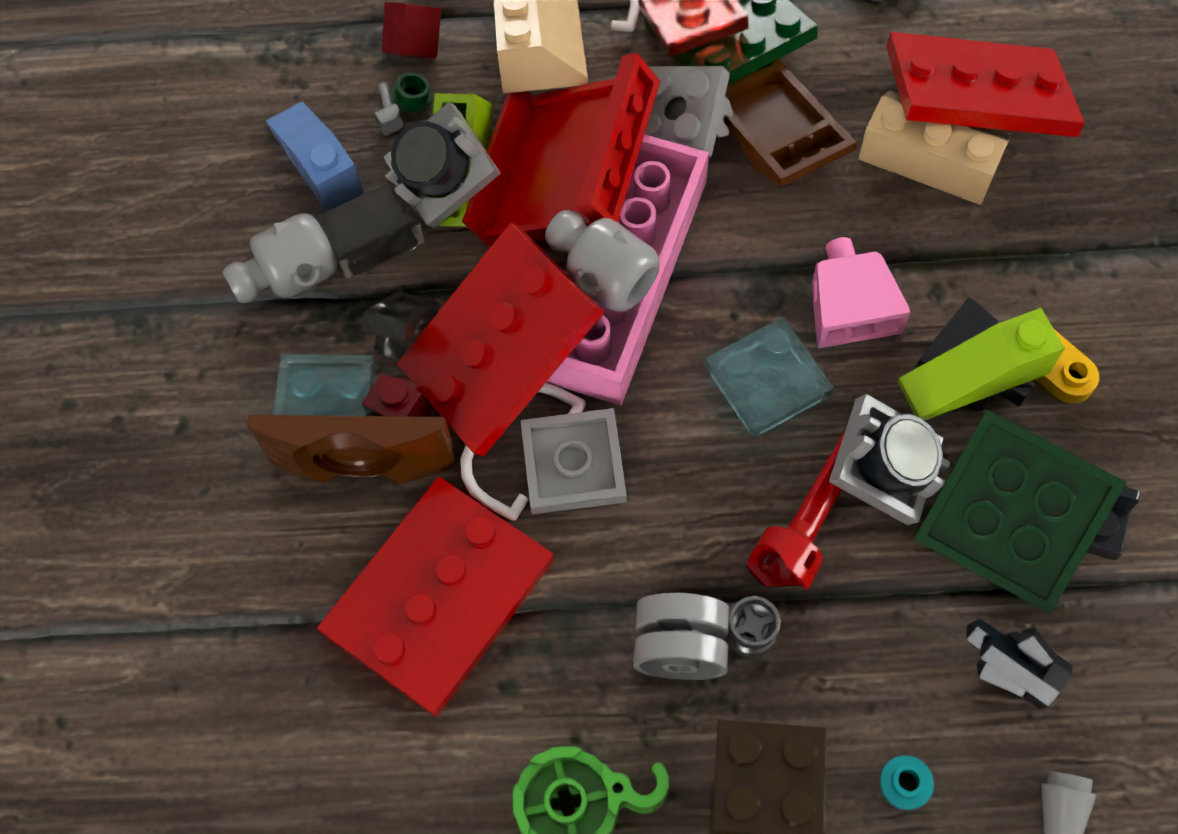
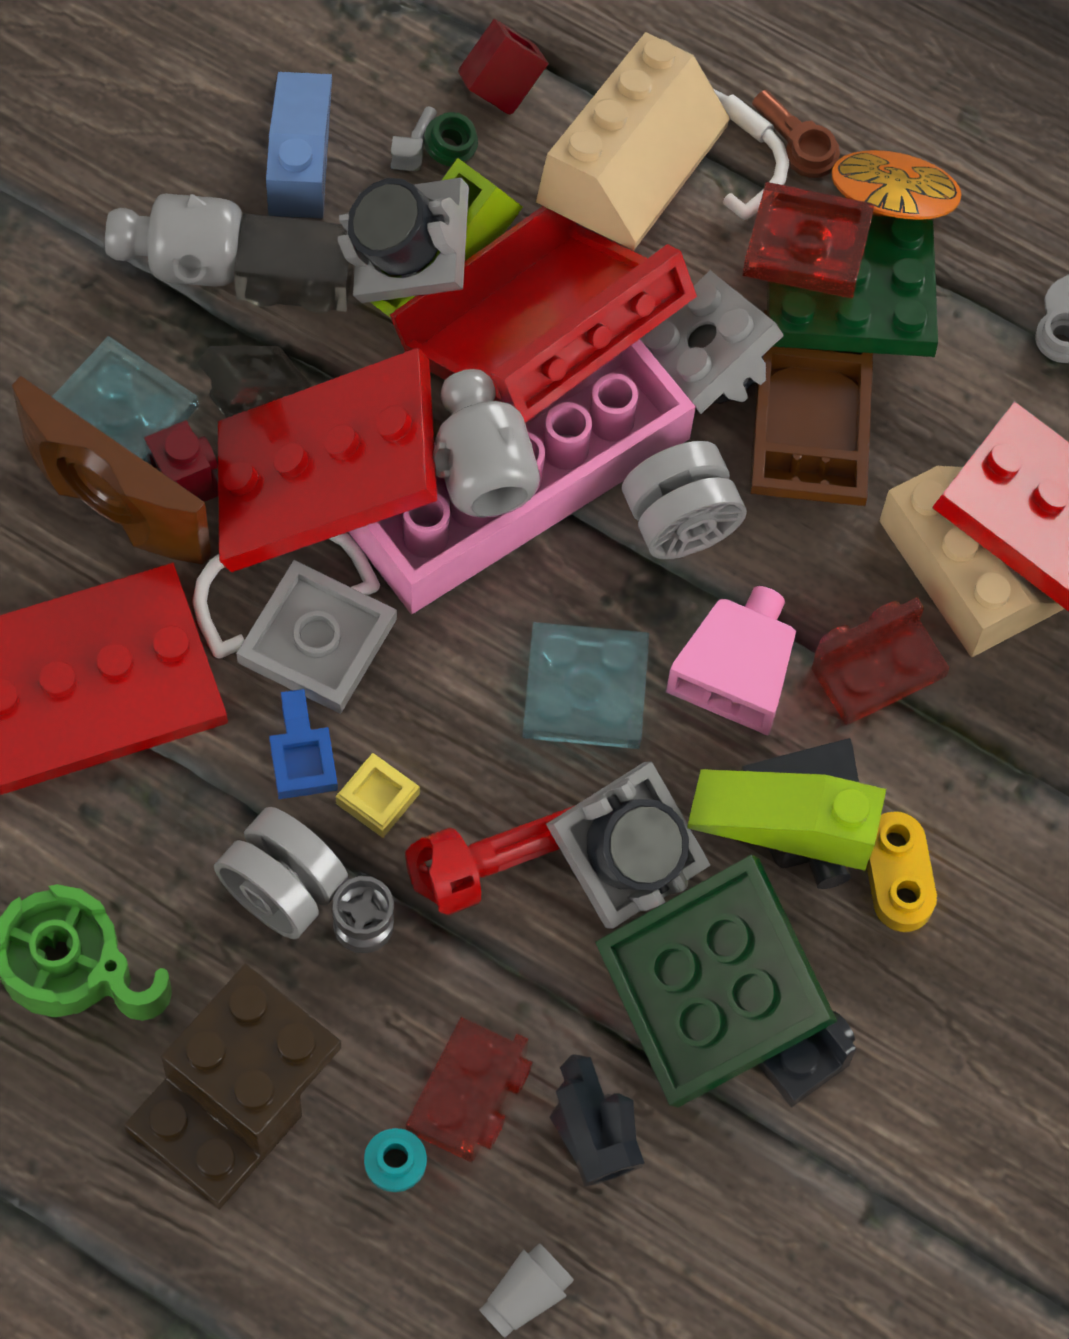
camera: 25 degrees right, 0 degrees up
(626, 547) = (301, 756): none -> blue plate
(693, 539) = (377, 795): none -> light yellow tile
(742, 217) = (683, 499): none -> light grey wheel
(916, 697) = (468, 1088): none -> clear red bracket
(935, 242) = (878, 660): none -> clear red bracket

